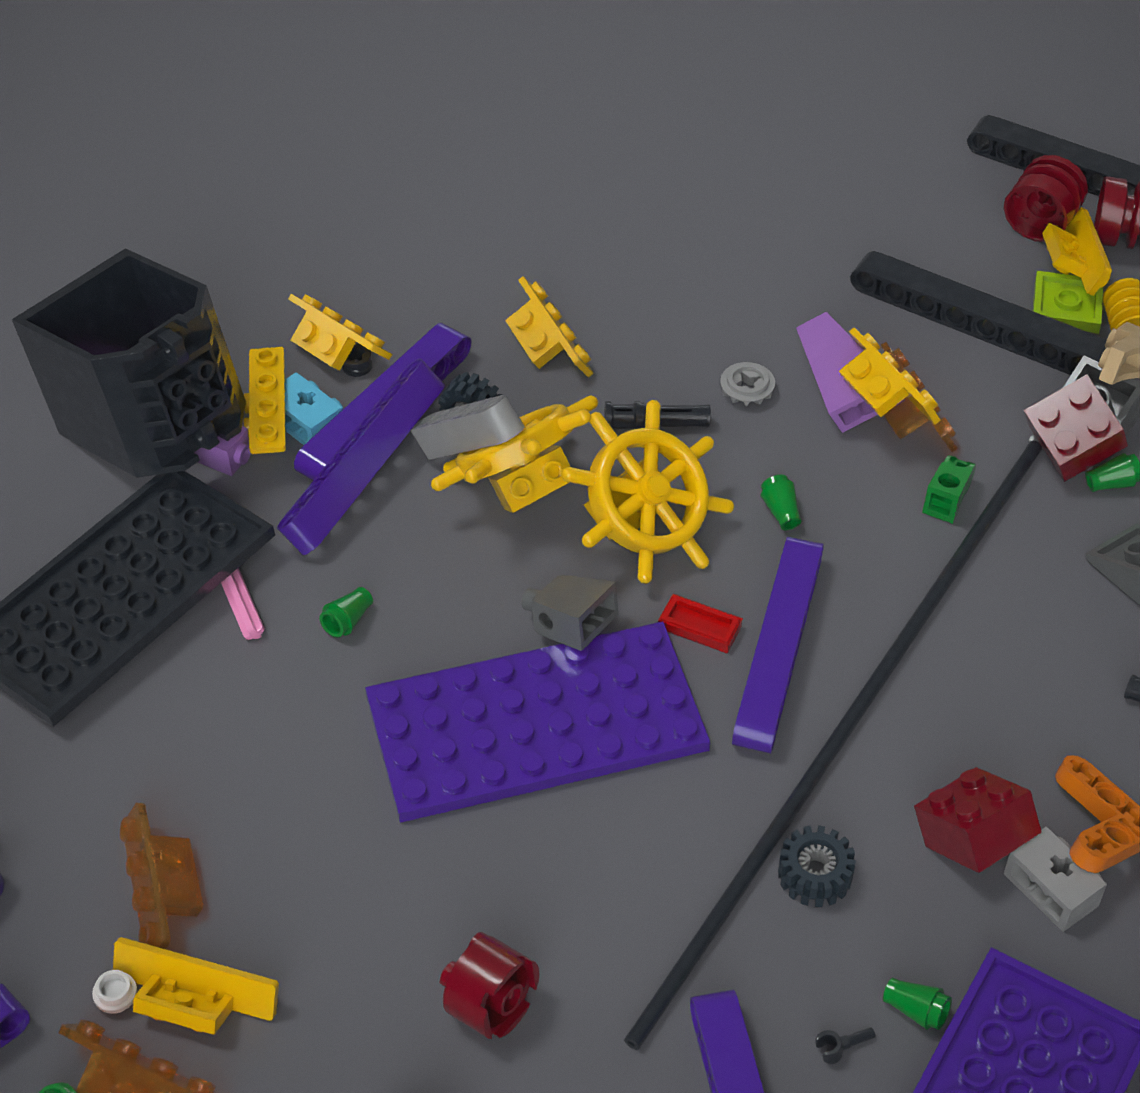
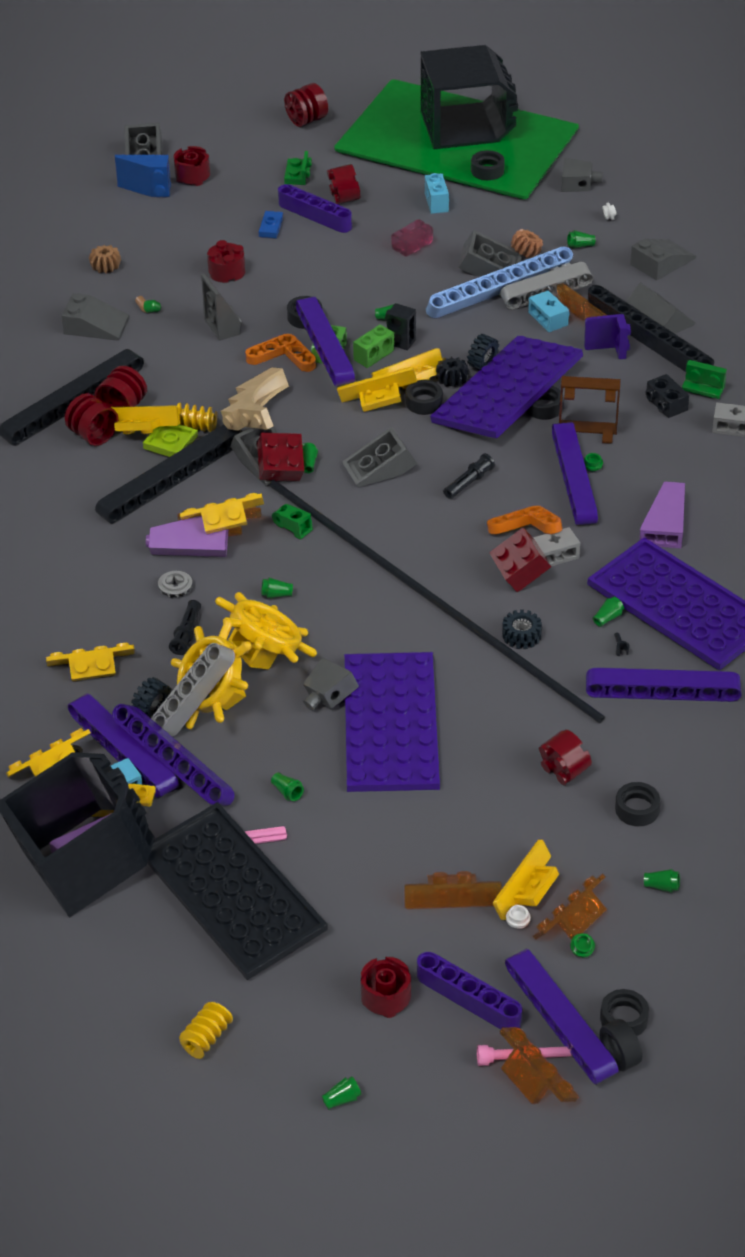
camera: 75 degrees left, 5 degrees down
(700, 623) = (347, 642): red tile -> none
(778, 646) = (376, 611): dark purple beam -> none

